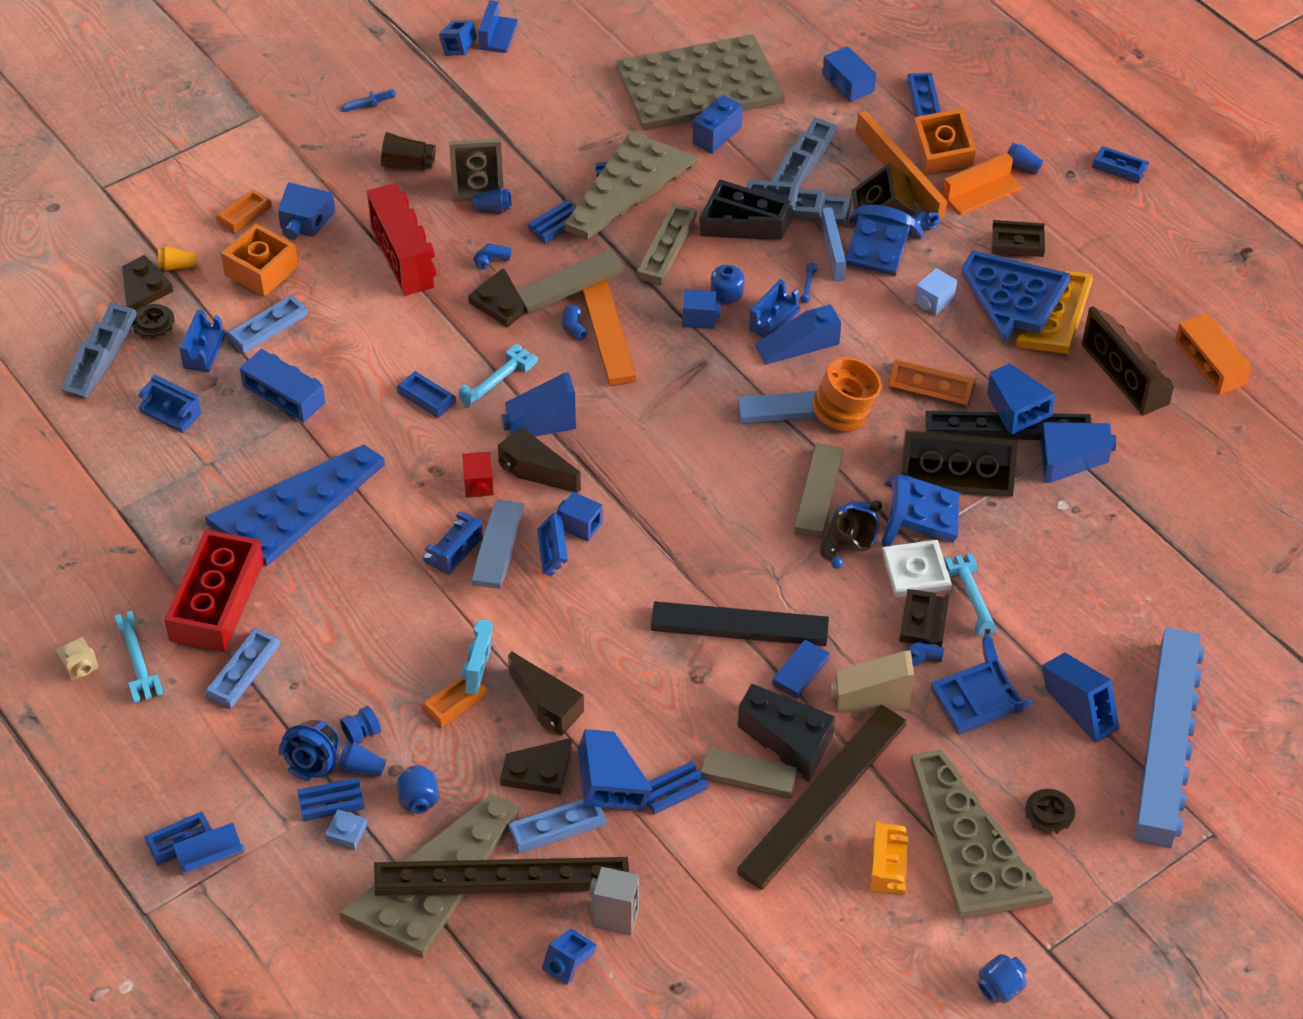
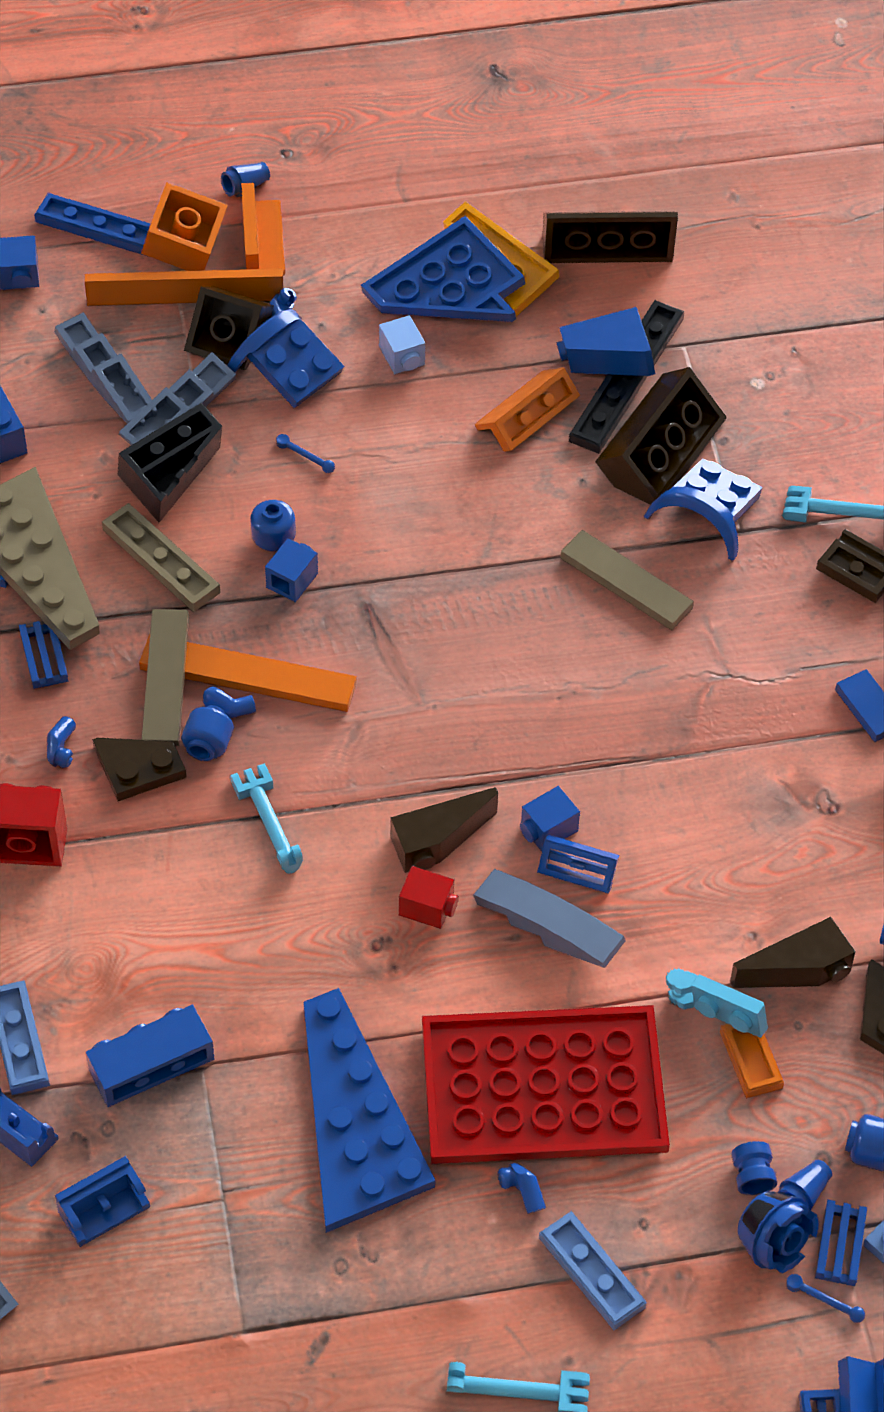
camera: 65 degrees left, 5 degrees up
(214, 590) = (470, 1252): red brick -> none
(287, 785) = (795, 1284): none -> blue hinge
(289, 603) = (525, 1182): none -> blue arm
(368, 590) = (544, 1084): none -> red plate
(426, 394) = (252, 904): blue tile -> none
(455, 544) = (518, 965): blue hinge -> none
(541, 319) = (207, 733): none -> blue head
(543, 409) = (368, 786): blue slope -> none
(739, 623) = (778, 735): black tile -> none
(773, 310) = (337, 503): blue hinge -> none
(776, 407) = (483, 562): medium blue tile -> none
(804, 334) = (392, 494): blue slope -> none
(833, 244) = (268, 402): medium blue tile -> none
(846, 394) = (524, 486): orange wheel -> none
(851, 528) = (706, 575): dark brown piece -> none
(916, 567) = (783, 544): white tile -> none
(1018, 238) = (364, 239): dark brown plate -> none
(1074, 448) = (697, 336): blue slope -> none
(1120, 164) = (307, 107): blue tile -> none
(1213, 353) = (633, 162): orange brick -> none

